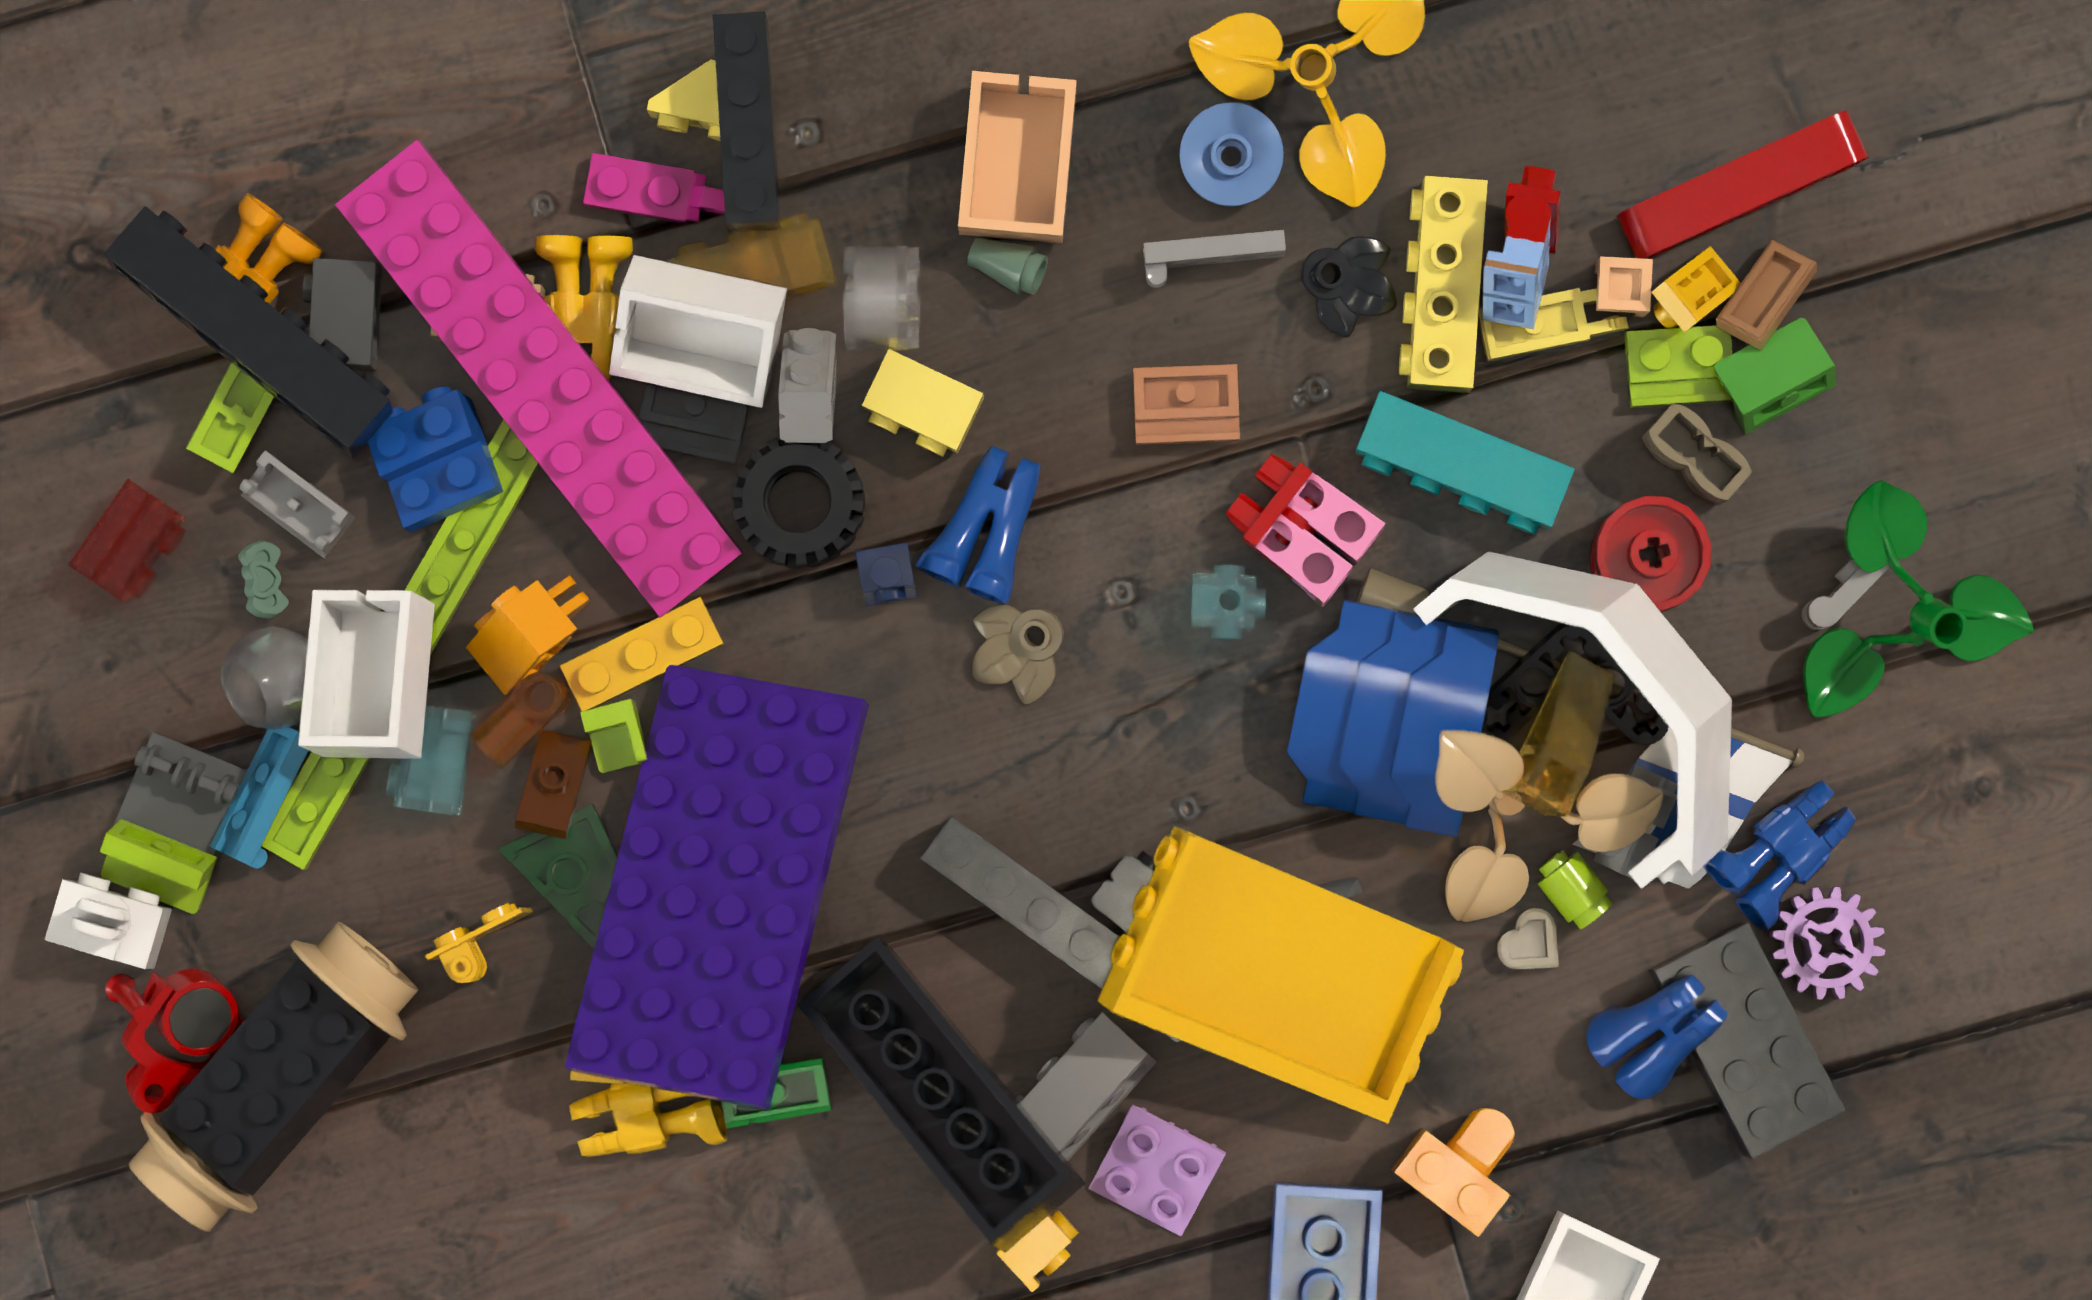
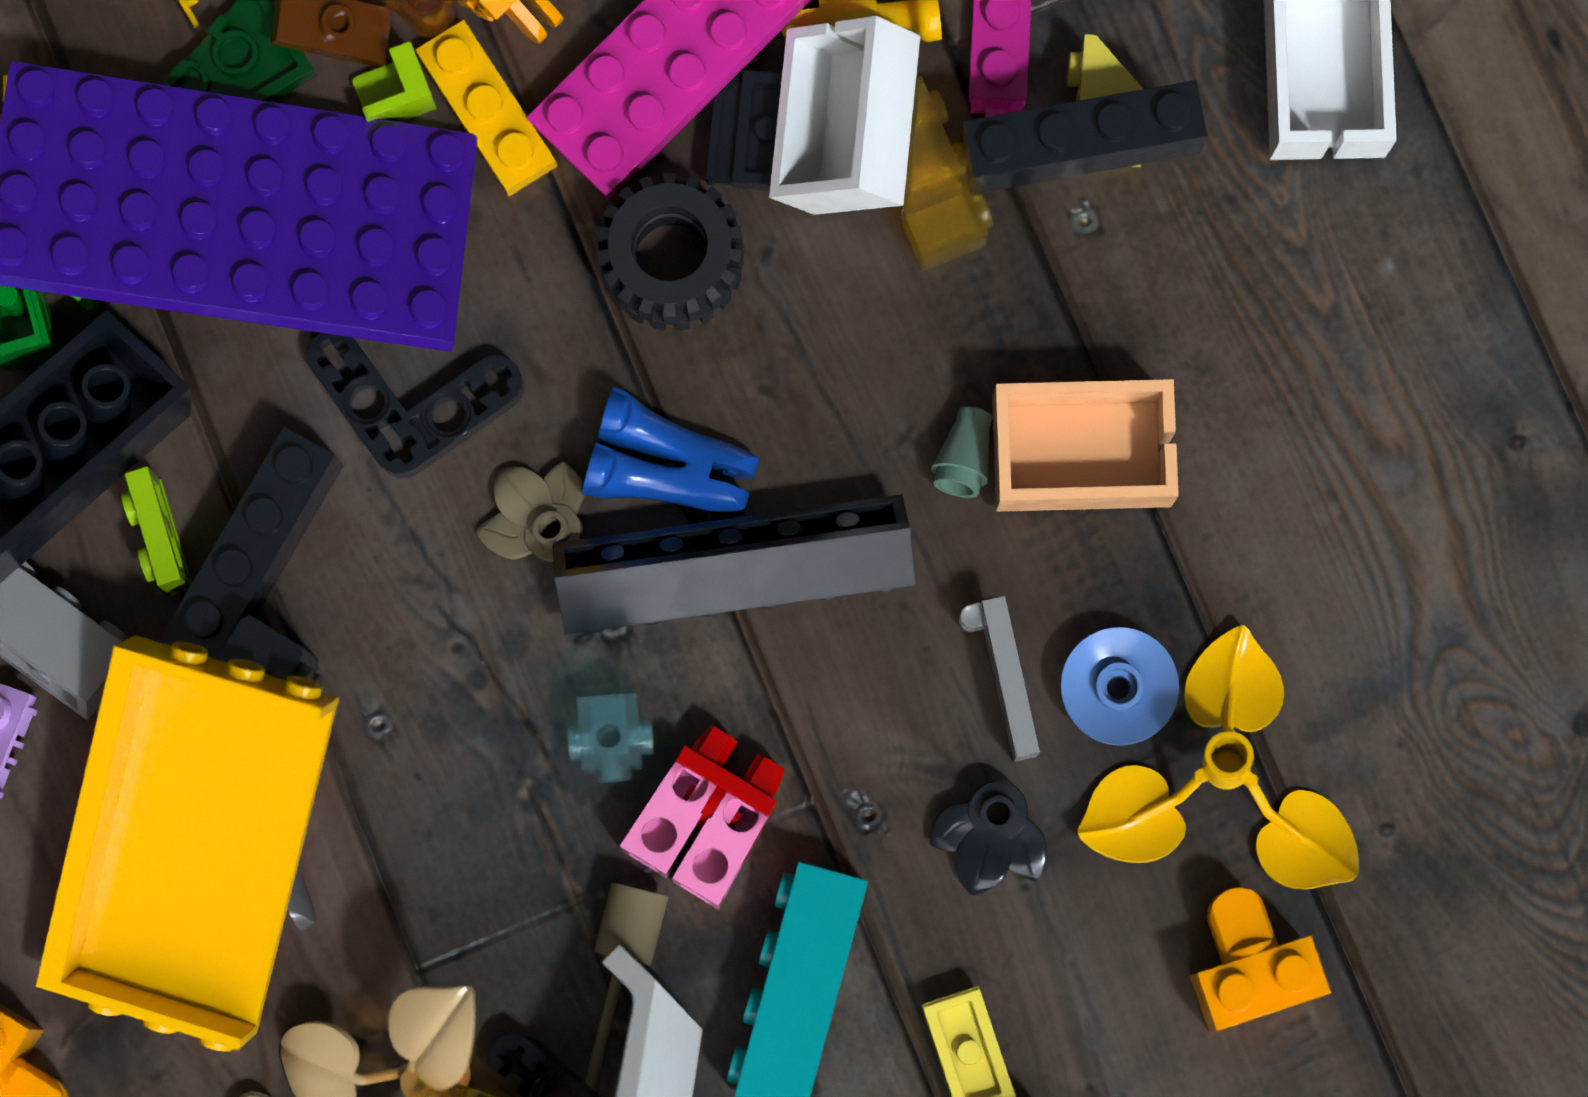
camera: 80 degrees right, 5 degrees down
(807, 386) = (797, 242): light grey brick -> none
(881, 298) = (907, 312): clear brick -> none
(886, 574) = (601, 358): dark blue brick -> none
(921, 402) = (796, 373): light yellow brick -> none
(922, 743) = (418, 421): none -> black beam
(976, 989) = (163, 555): none -> lime plate
(1086, 476) = (733, 564): none -> black brick
(1186, 404) = (831, 669): nougat plate -> none
(1377, 708) = (515, 921): blue slope -> none
(1446, 284) = (1002, 946): light yellow brick -> none
(1492, 68) = (1255, 970): none -> light orange brick
(1518, 275) = (1020, 1026): hips -> none

